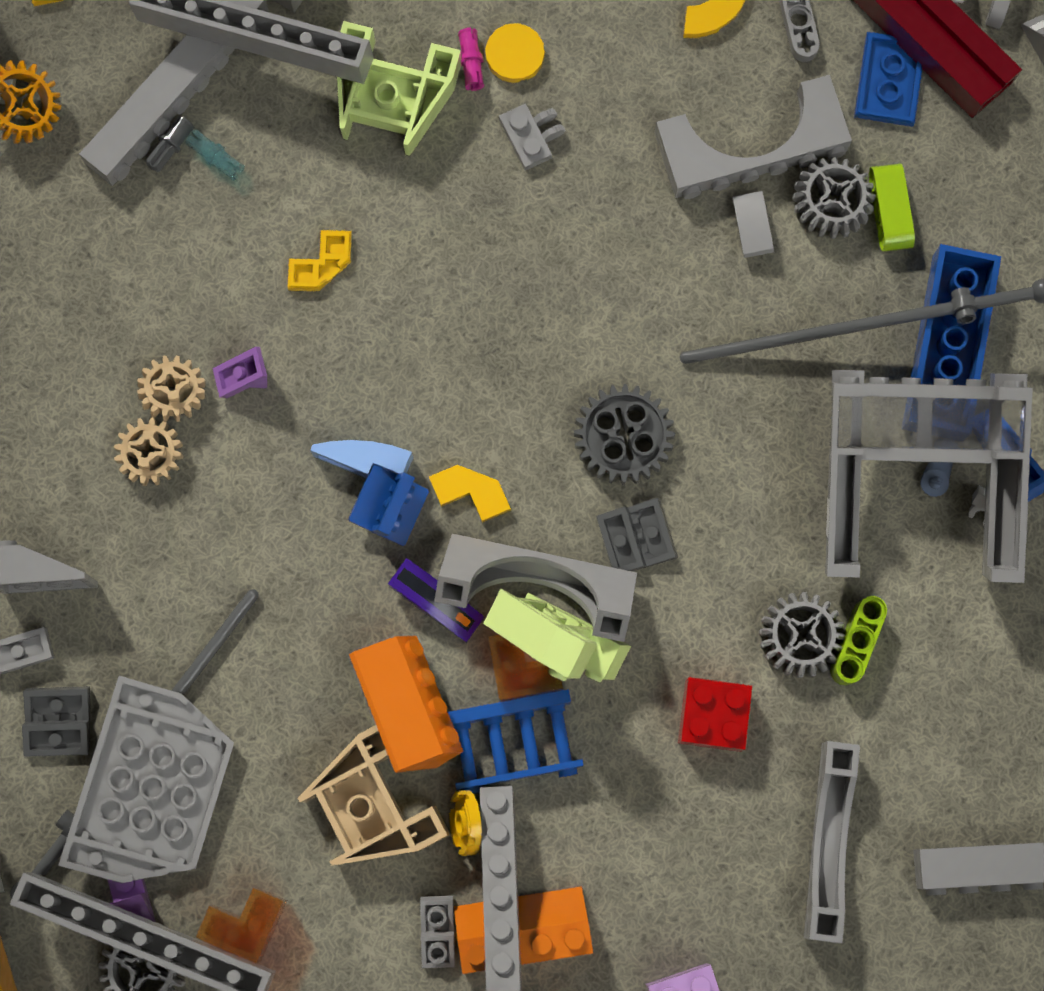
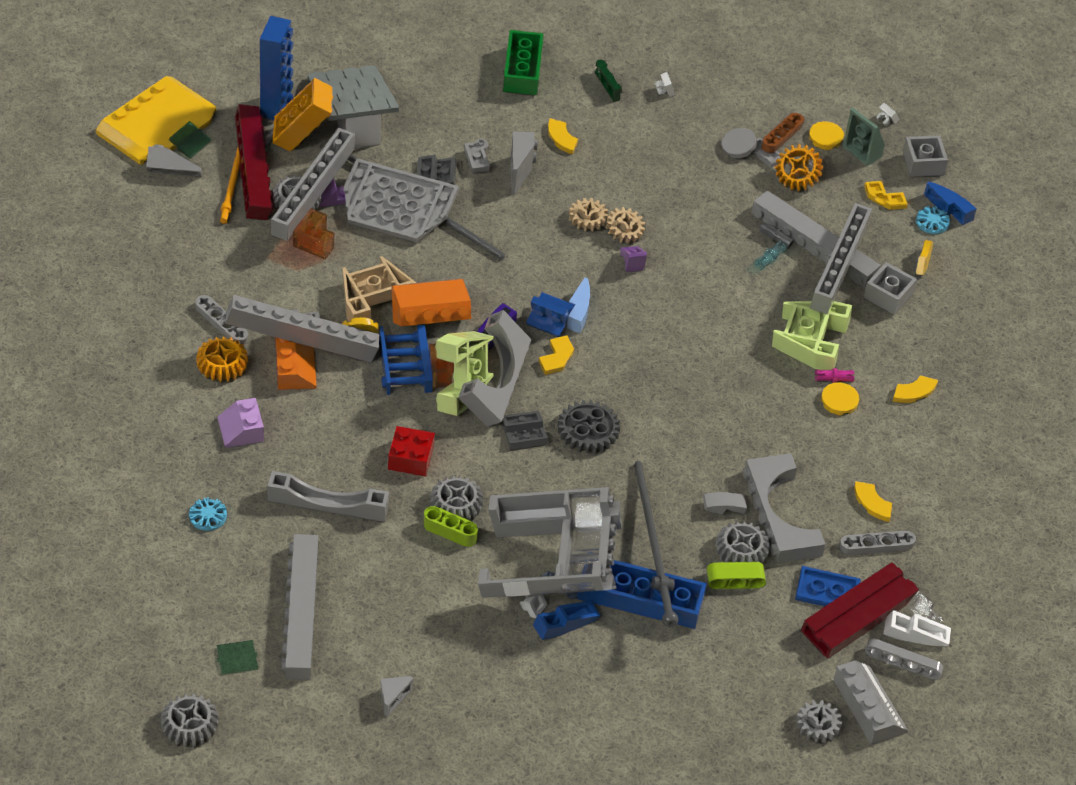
camera: 90 degrees right, 30 degrees down
(317, 273) = (705, 305): yellow tile -> none
(526, 137) = (785, 399): light grey hinge -> none

